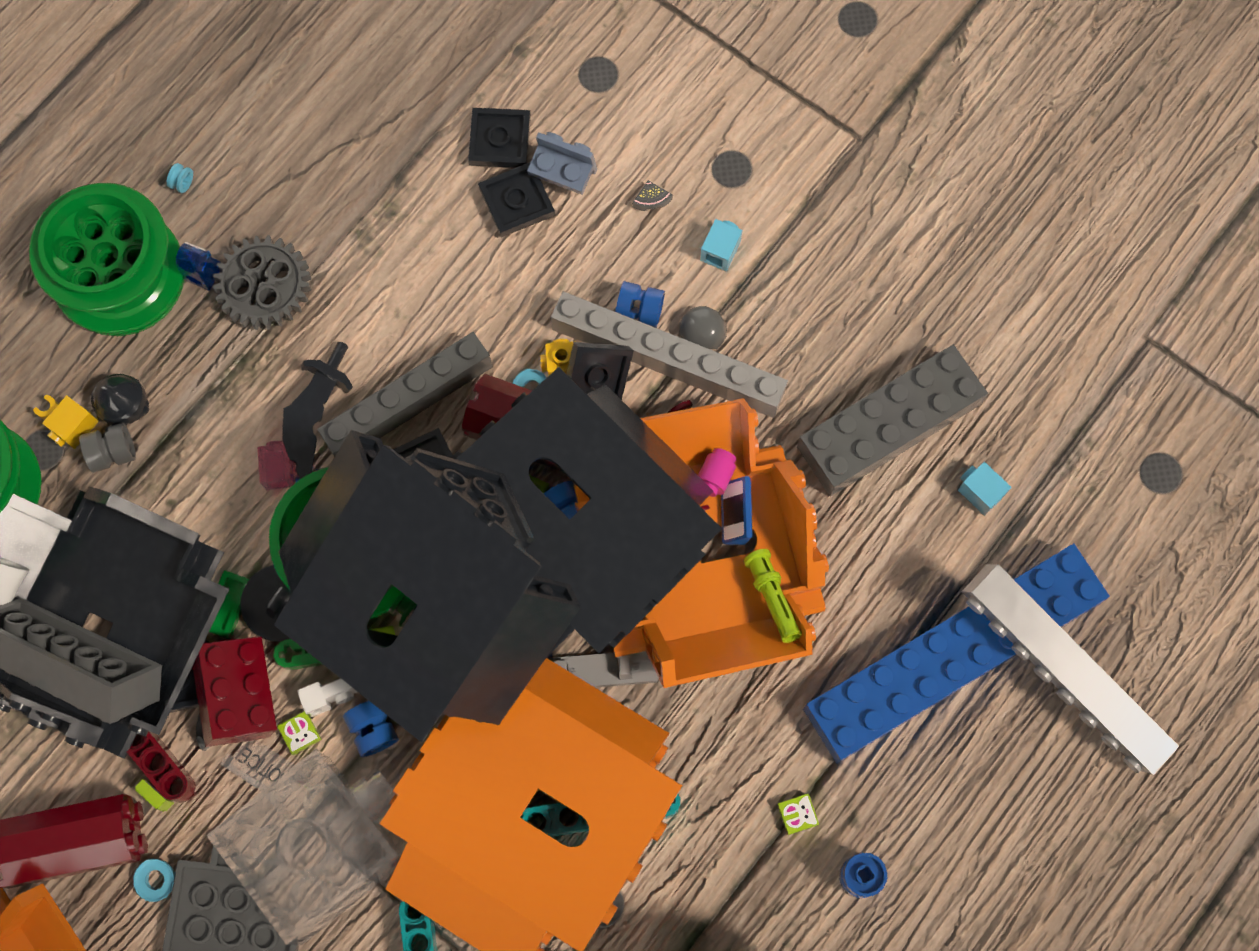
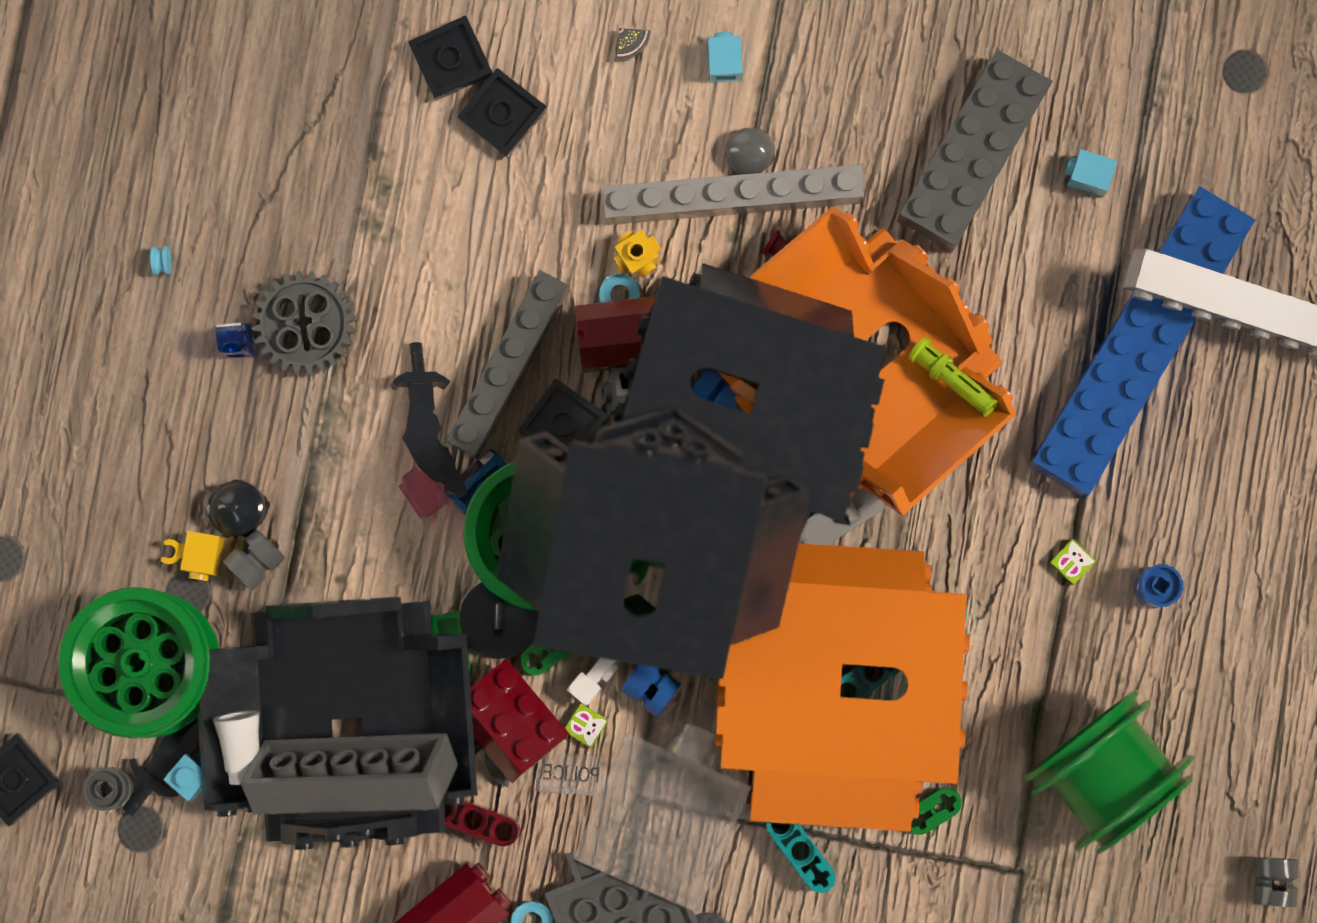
camera: 25 degrees left, 10 degrees up
(131, 291) = (129, 331): green wheel -> none
(152, 795) = (488, 850): lime tile -> none
(562, 162) = (530, 57): sand blue bracket -> none
(600, 365) = (679, 247): black plate -> none
(650, 306) = (691, 155): blue wheel -> none
(718, 470) = (841, 286): dark pink brick -> none
(737, 512) = (878, 314): slope -> none

